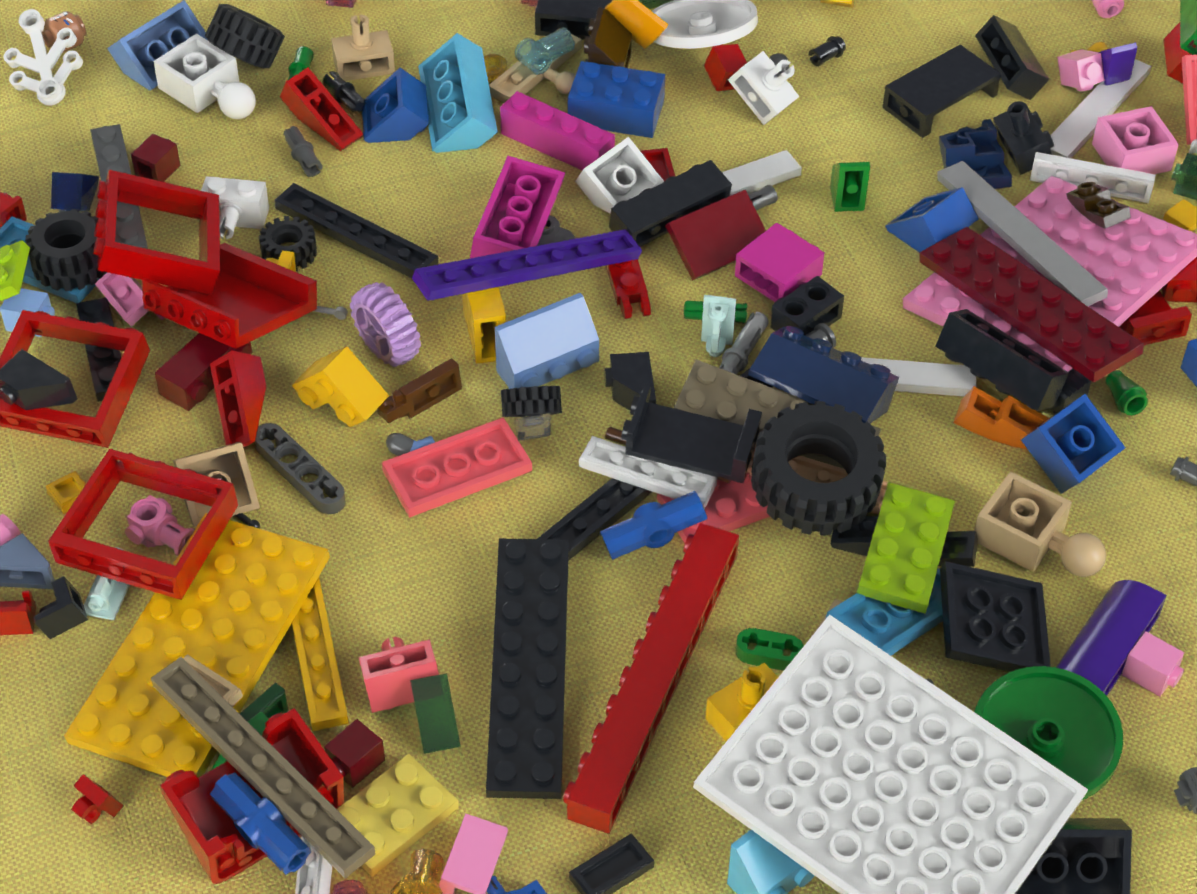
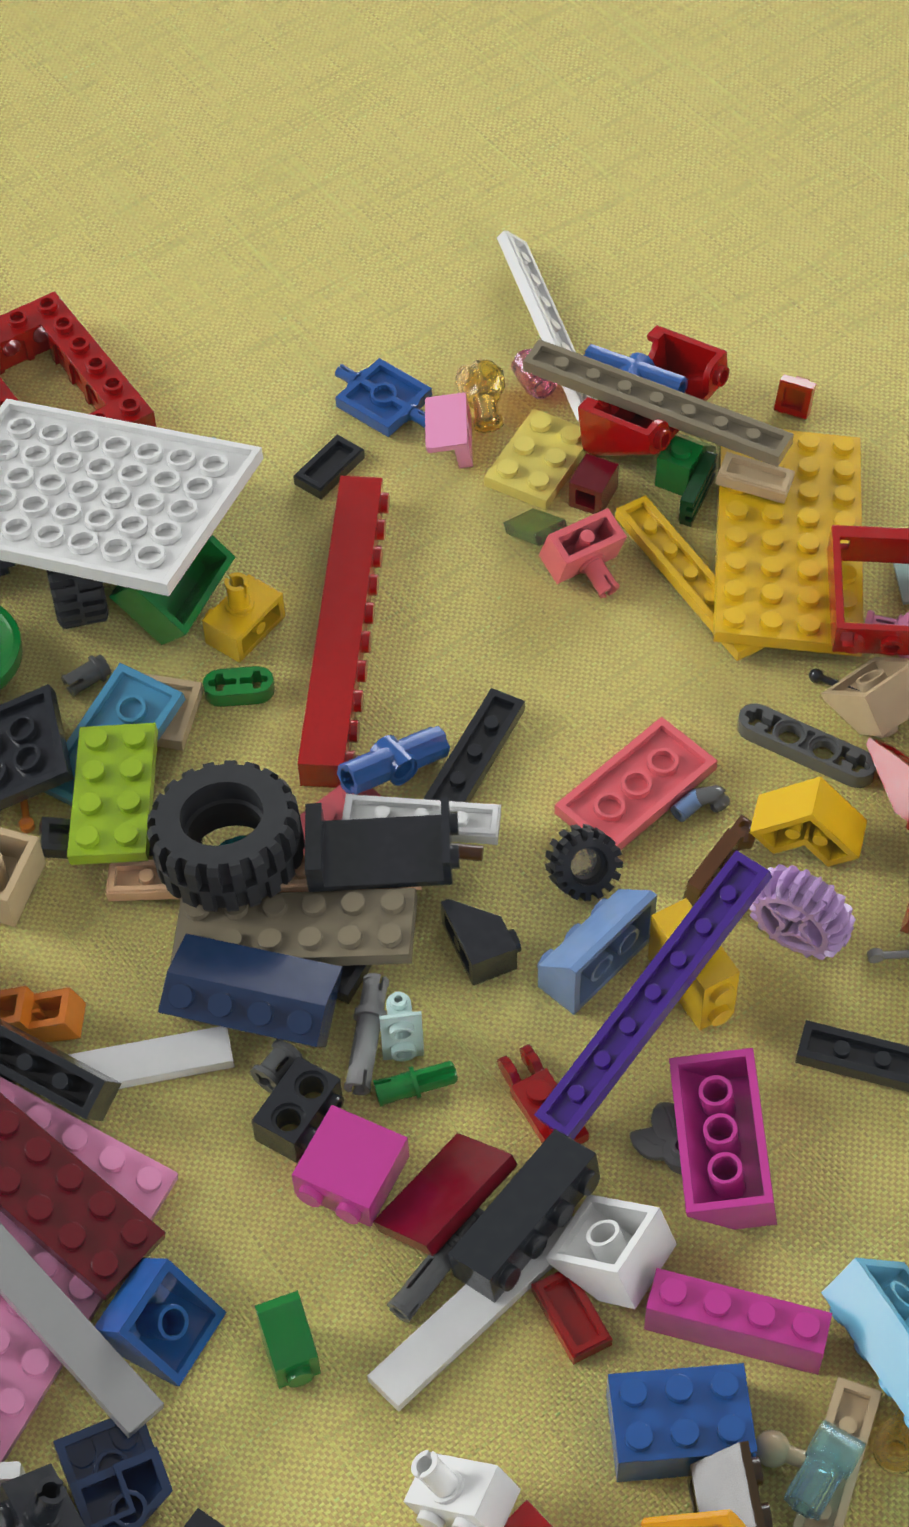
camera: 165 degrees right, 5 degrees up
(528, 670) = (470, 604): black plate -> none

